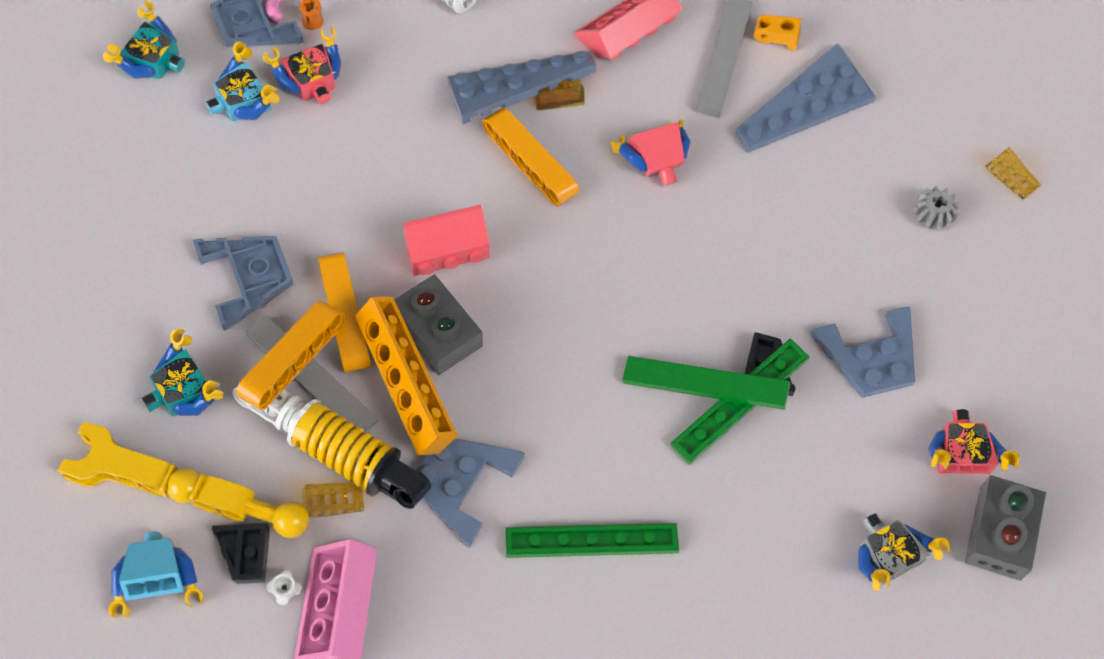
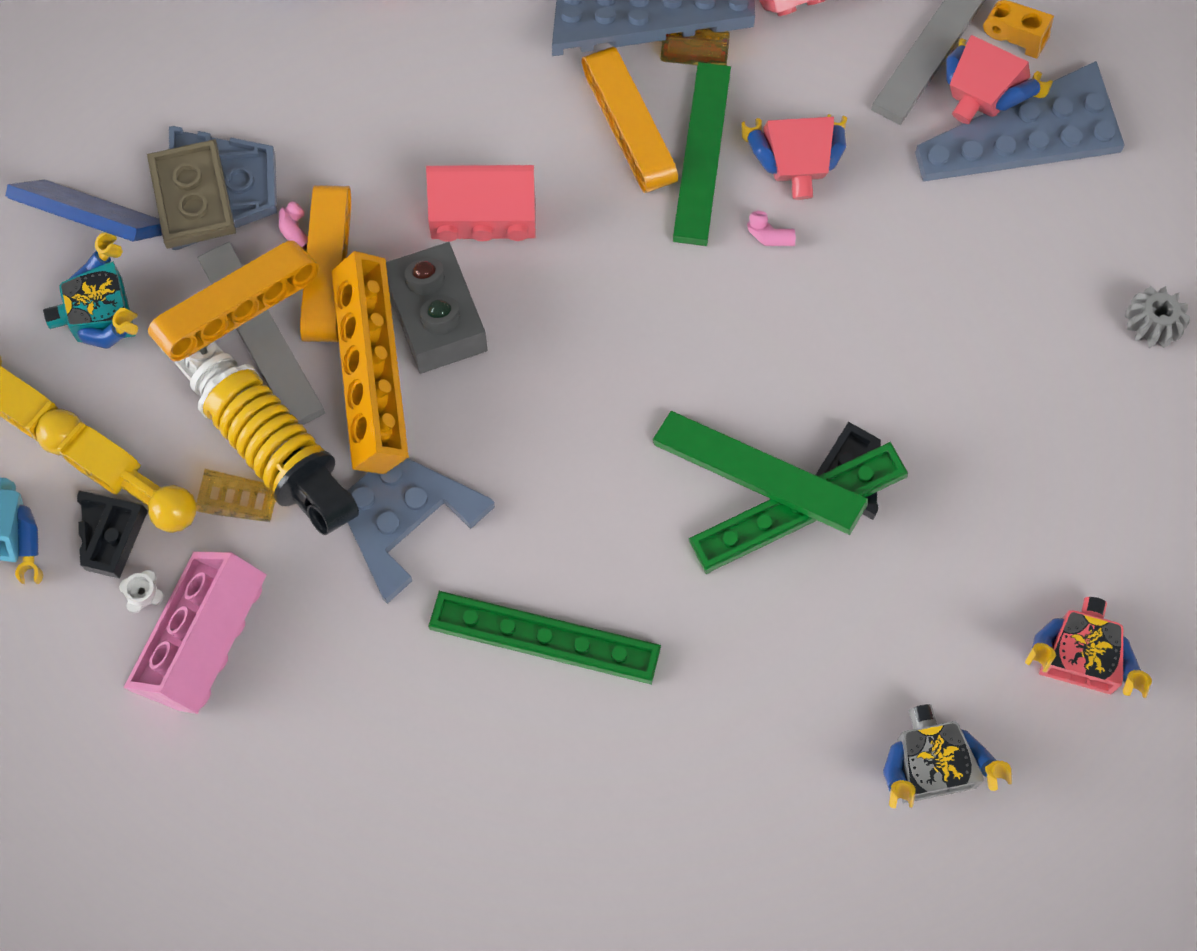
camera: 20 degrees right, 5 degrees up
(151, 316) = (85, 209): none -> blue tile
(227, 285) = (191, 194): none -> dark tan tile
(307, 293) = (289, 224): none -> bright pink arm
(589, 170) = (702, 154): none -> green tile
(653, 215) = (766, 234): none -> bright pink arm
(772, 72) = (989, 79): none -> coral torso
(877, 364) = (1004, 507): sand blue wing -> none
(1005, 527) = (1103, 773): dark grey piece -> none

